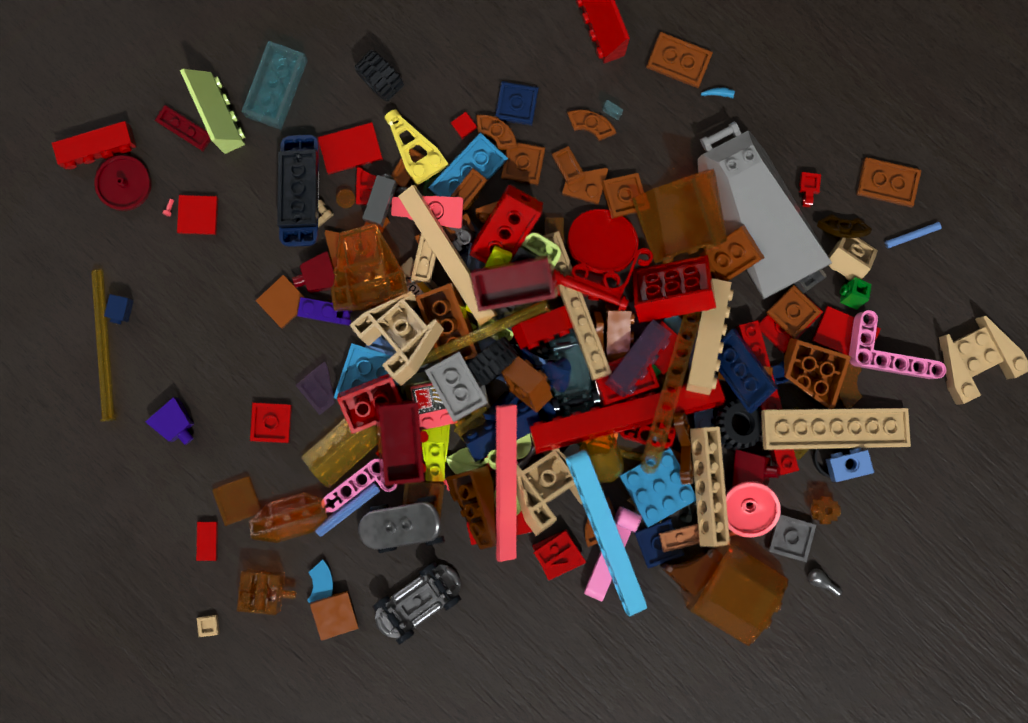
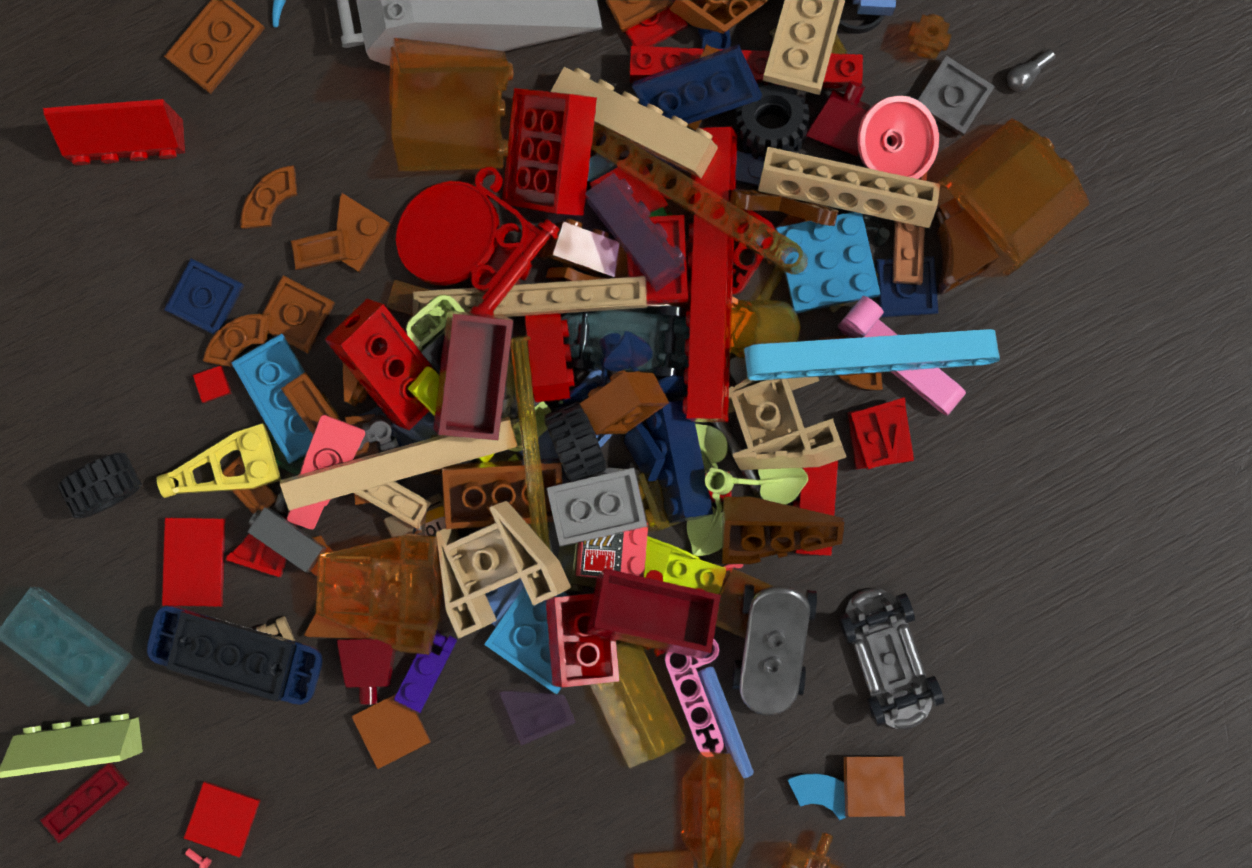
camera: 80 degrees left, 0 degrees up
(271, 422) = (565, 798): red tile -> none
(345, 198) = (267, 590): clear orange plate -> none
(506, 481) = (757, 475): coral tile -> none
(612, 110) = (258, 160): clear light blue tile -> none
(620, 192) = (386, 187): dark orange tile -> none
(734, 255) = (529, 47): dark orange tile -> none

